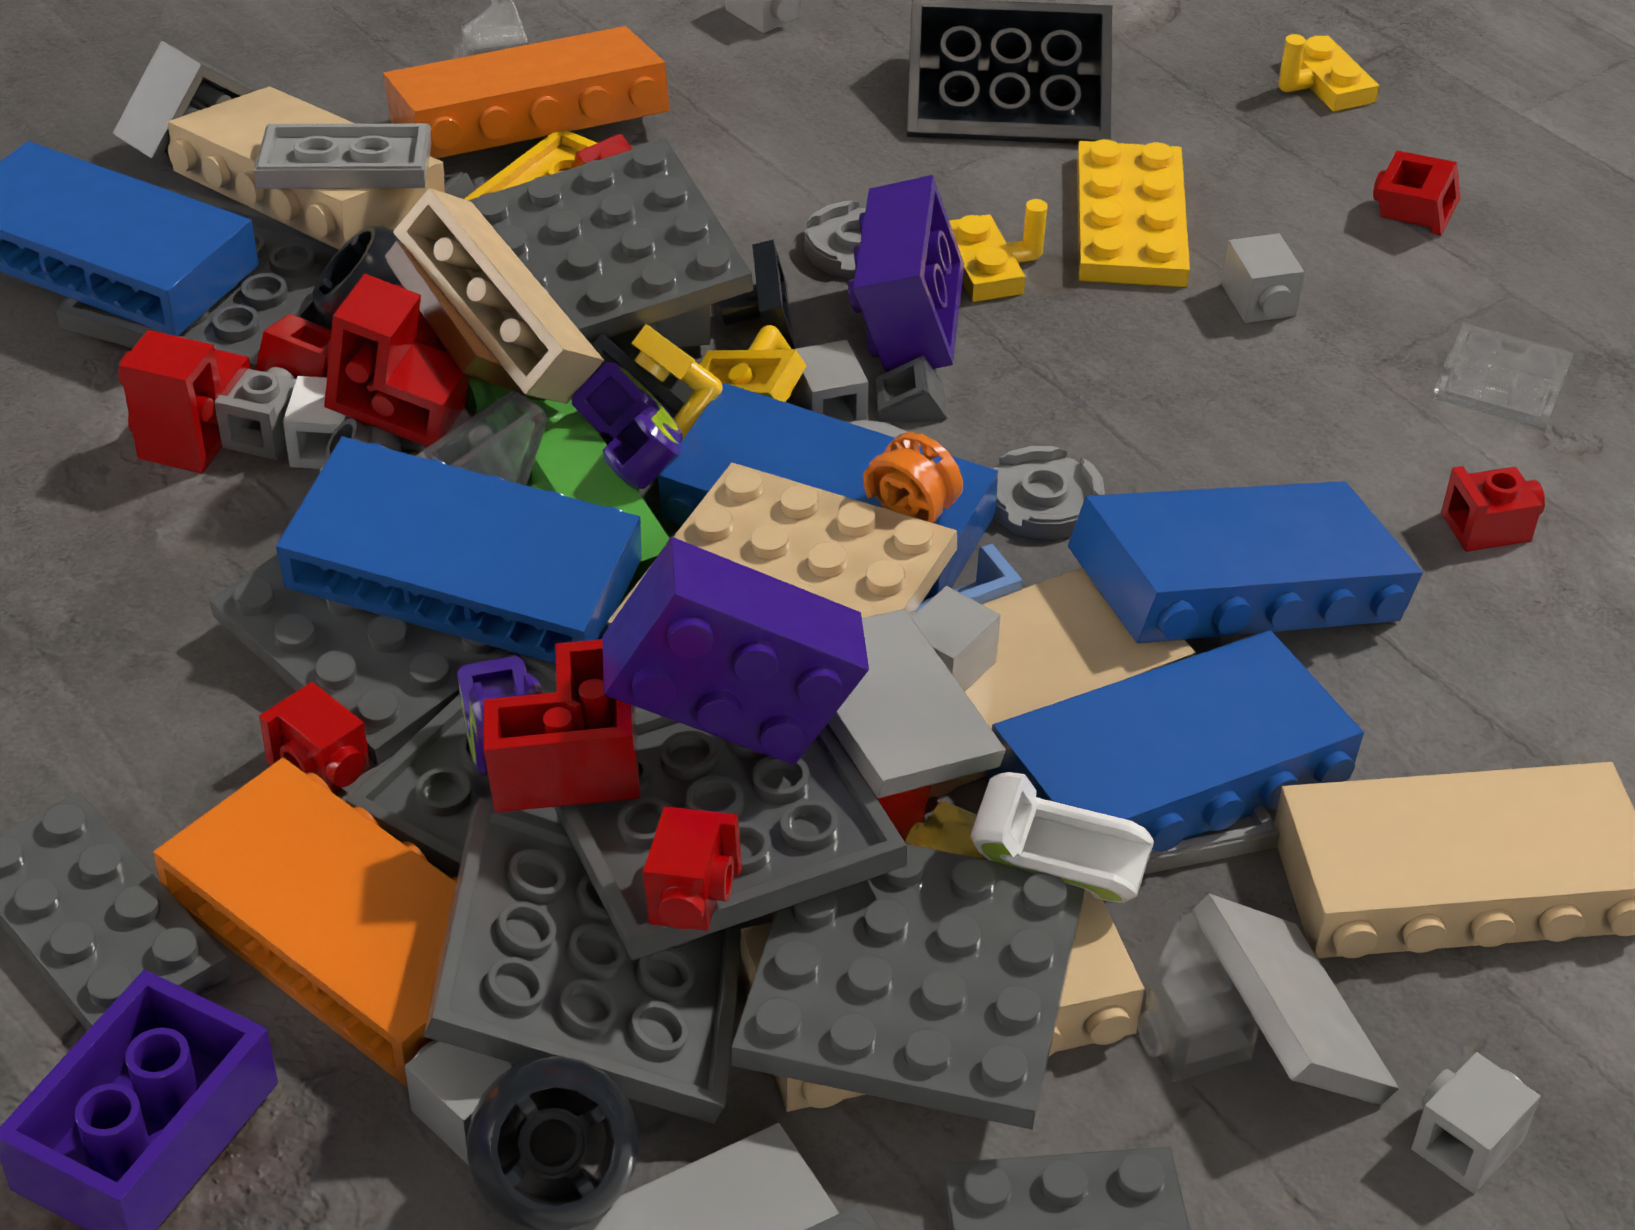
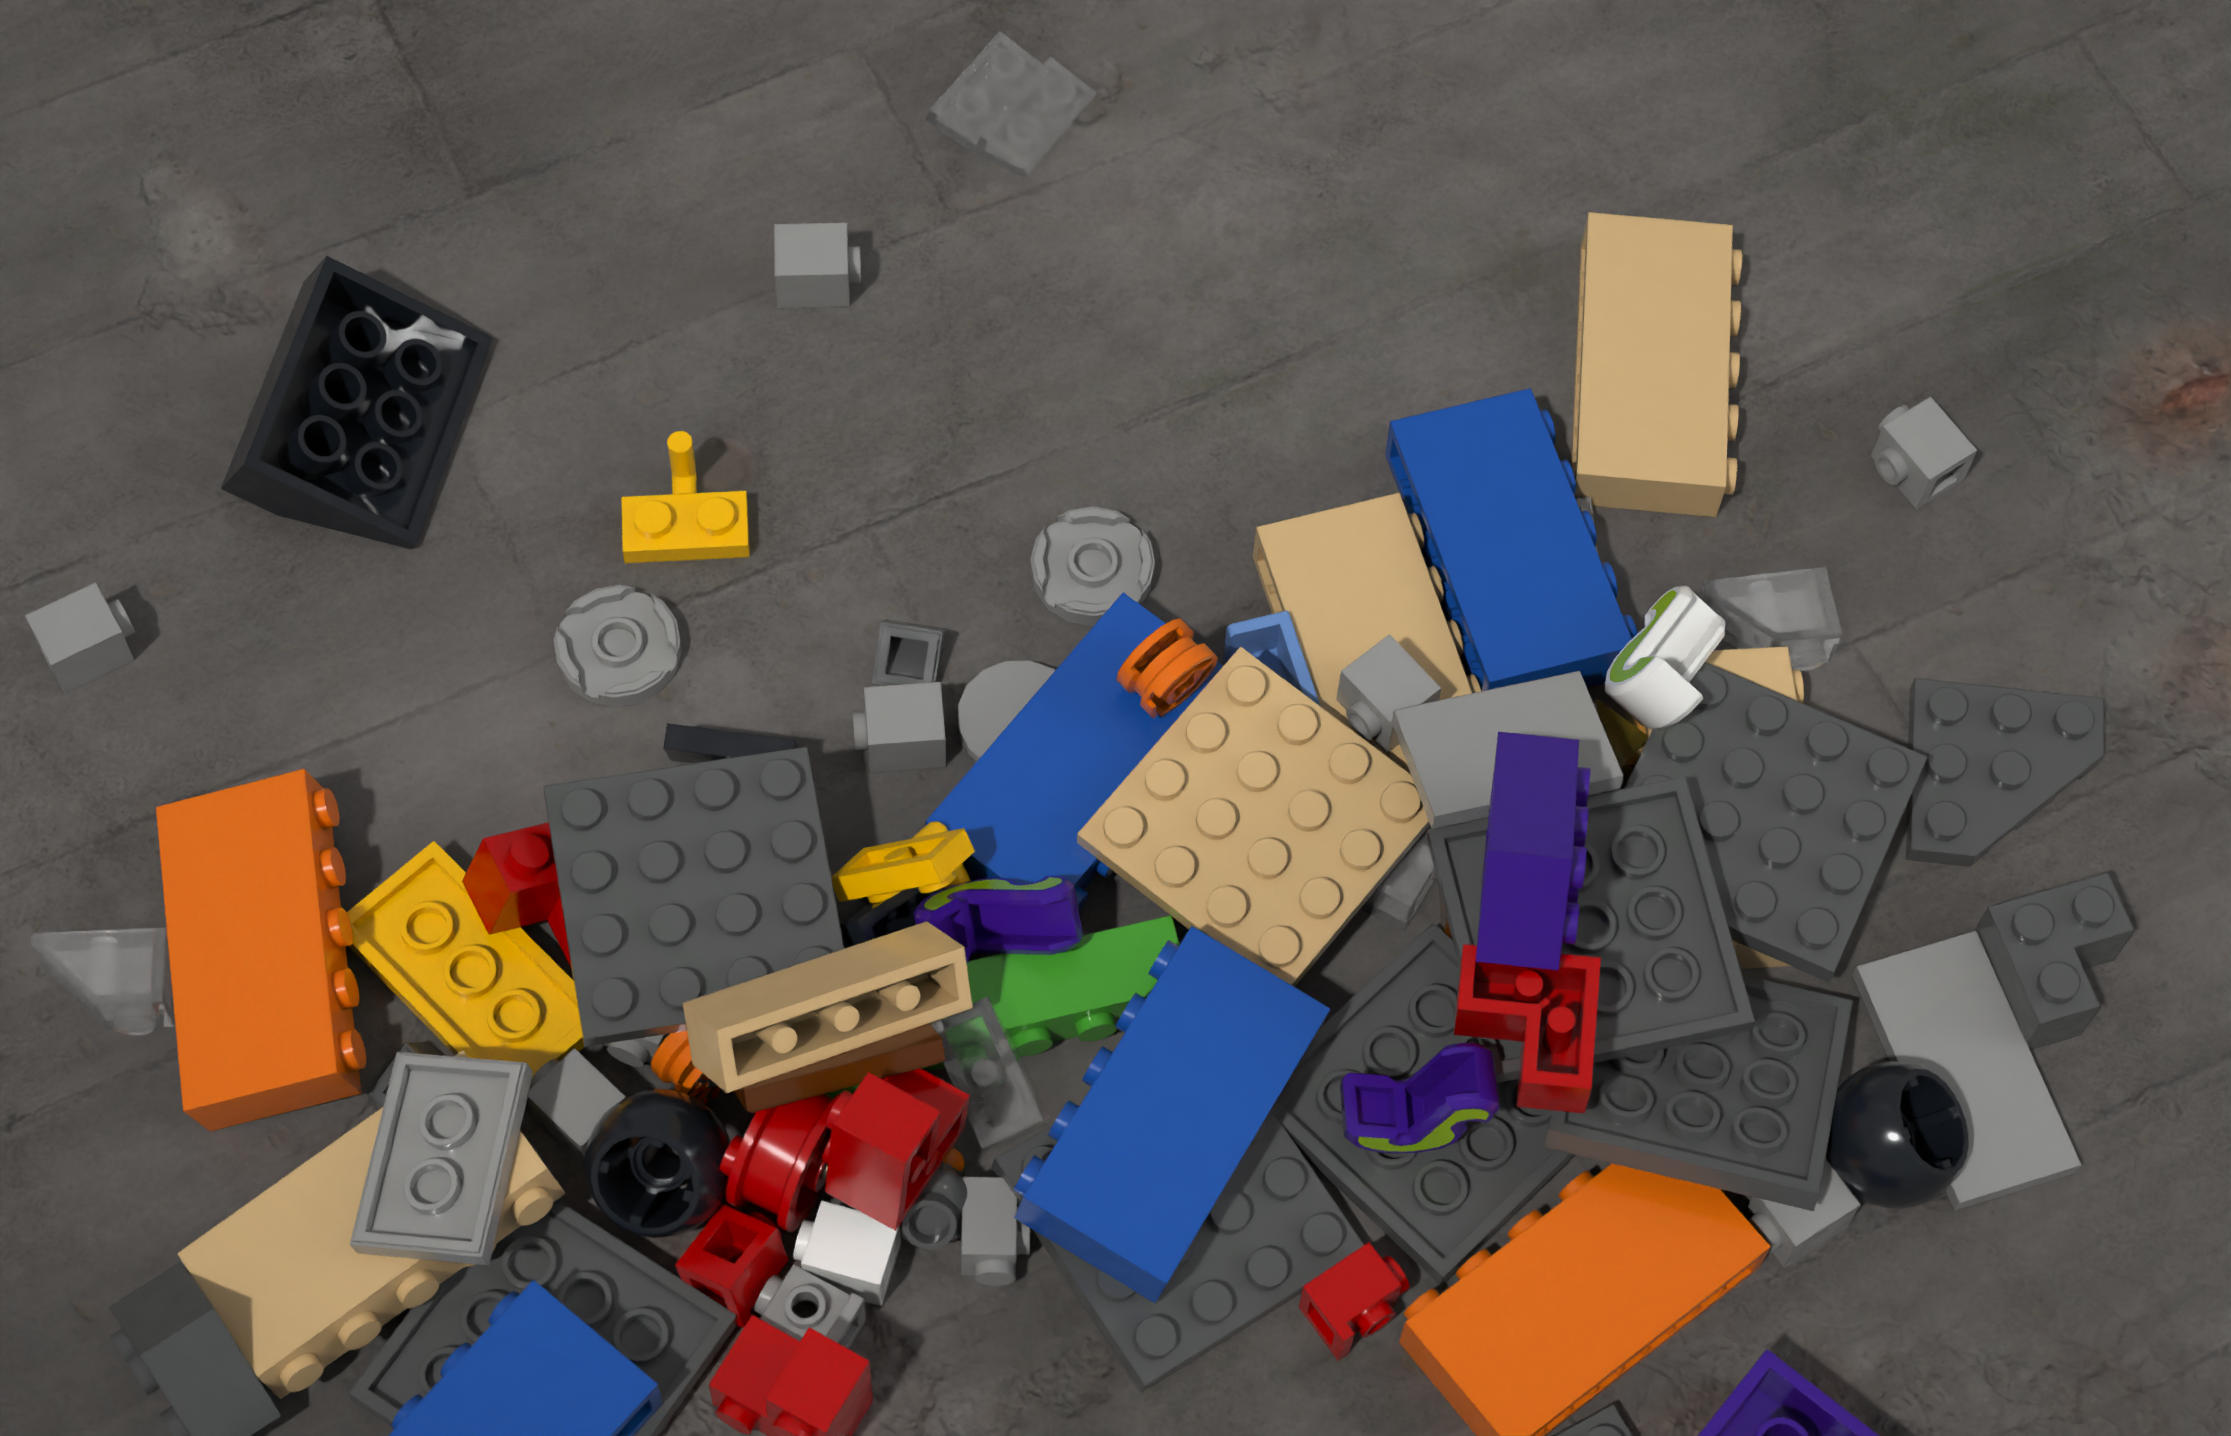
camera: 80 degrees left, 20 degrees up
(691, 867) = (1716, 951): red brick -> none
(764, 368) = (887, 799): yellow plate -> none
(907, 275) = (773, 601): dark purple brick -> none
(1132, 214) = (639, 356): yellow plate -> none
(1242, 560) = (1291, 415): blue brick -> none
(1294, 1001) = (1800, 540): light grey tile -> none
(1325, 70) = (420, 80): yellow plate -> none
(1418, 190) = (705, 52): red brick -> none
(1492, 507) = (1211, 184): red brick -> none

